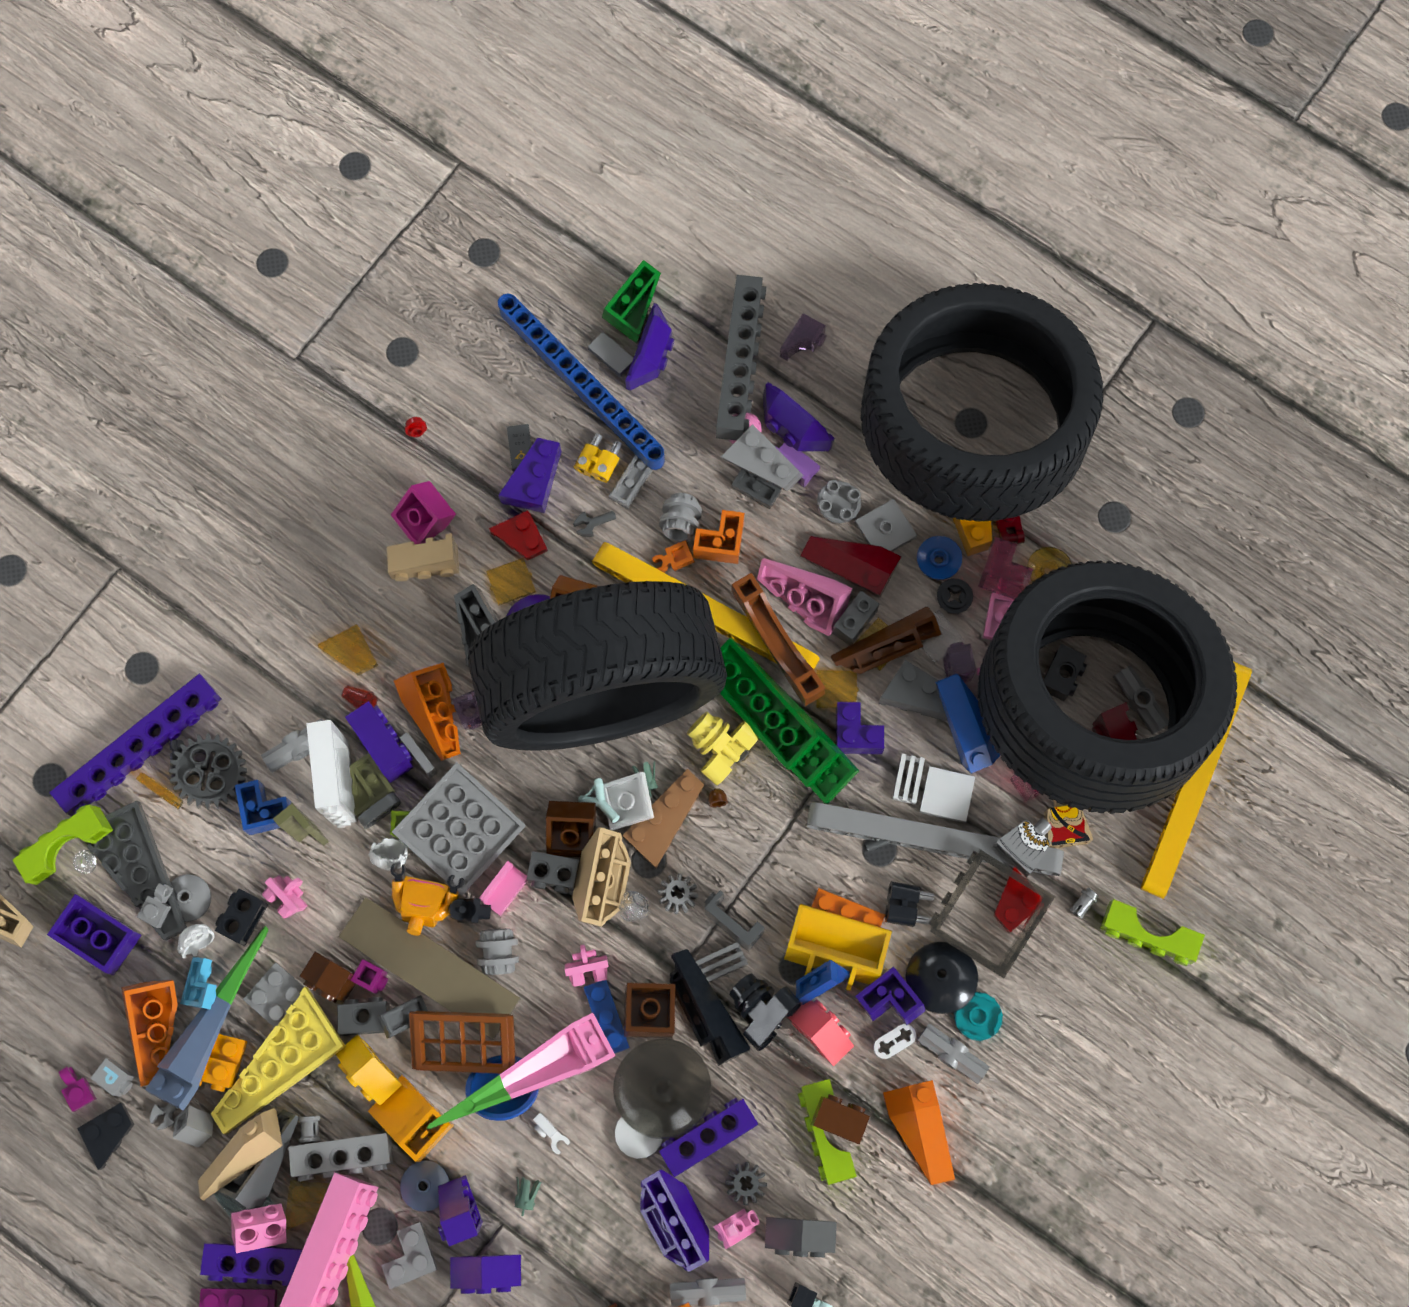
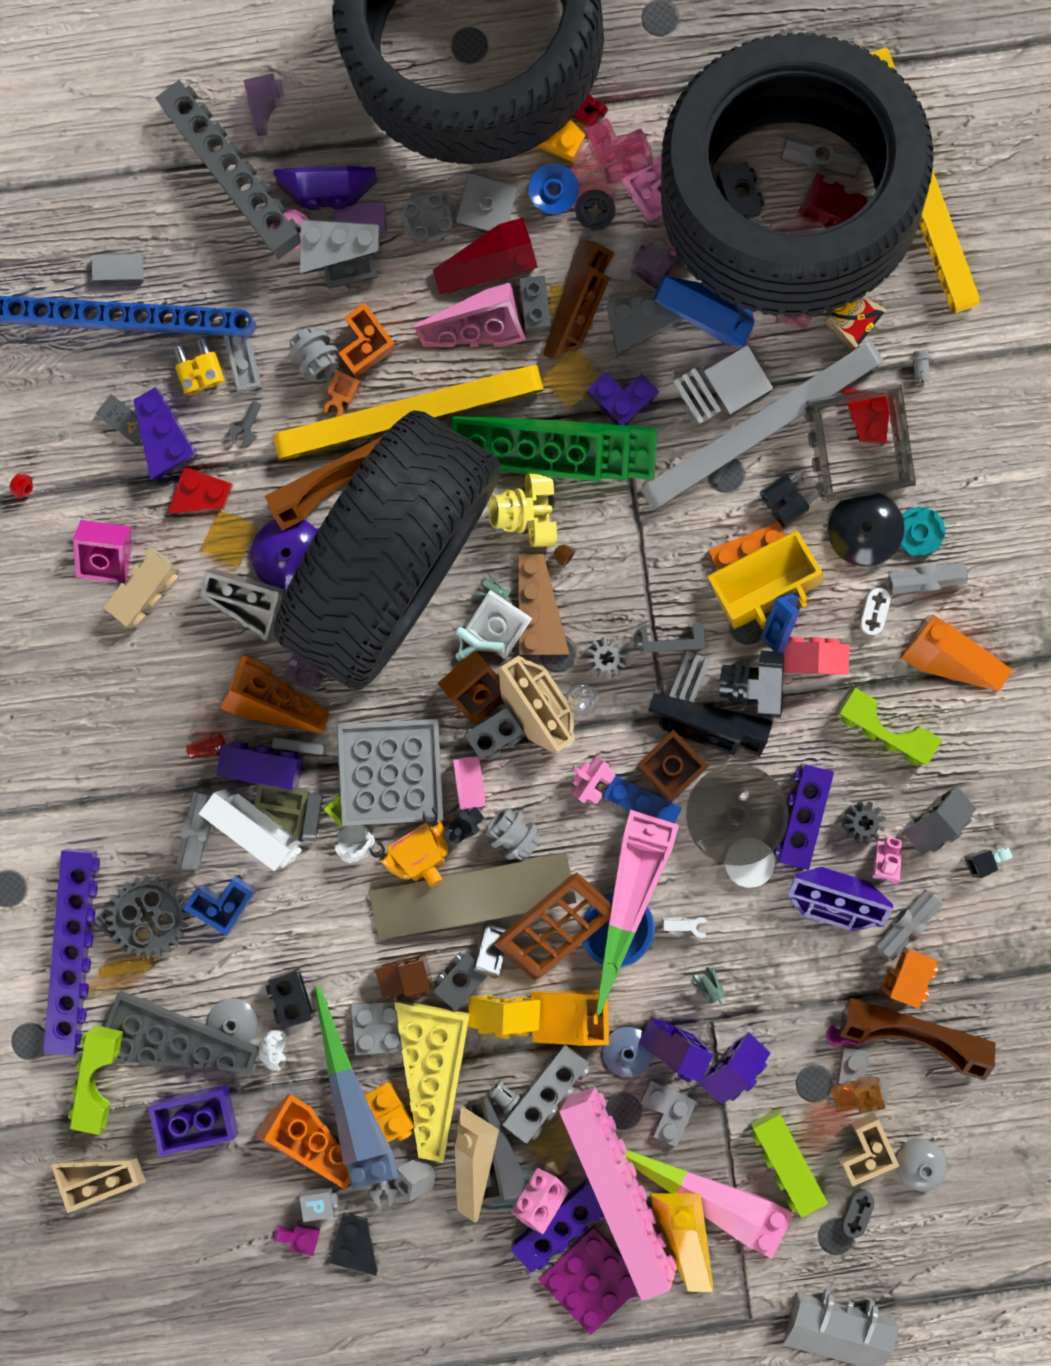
camera: 45 degrees left, 15 degrees up
(80, 859) = (124, 1079): clear plate -> none
(155, 908) = (219, 1056): light grey plate -> none
(196, 990) = (313, 1084): medium azure plate -> none
(288, 892) = (306, 946): bright pink hips -> none
(298, 824) = (267, 887): olive fence -> none
(350, 650) = (159, 716): clear yellow wing -> none
(370, 977) = (436, 947): magenta brick -> none
(632, 301) = (92, 207): green wedge -> none
(651, 350) = (148, 231): dark purple wedge -> none
(788, 658) = (507, 388): dark orange arch -> none
(841, 1120) = (894, 709): reddish brown brick -> none
(888, 992) = (839, 577): dark purple brick -> none
(1025, 845) = (840, 364): light grey torso -> none
(1047, 558) = (653, 102): clear yellow dish -> none
(1122, 921) = (1022, 328): lime arch -> none

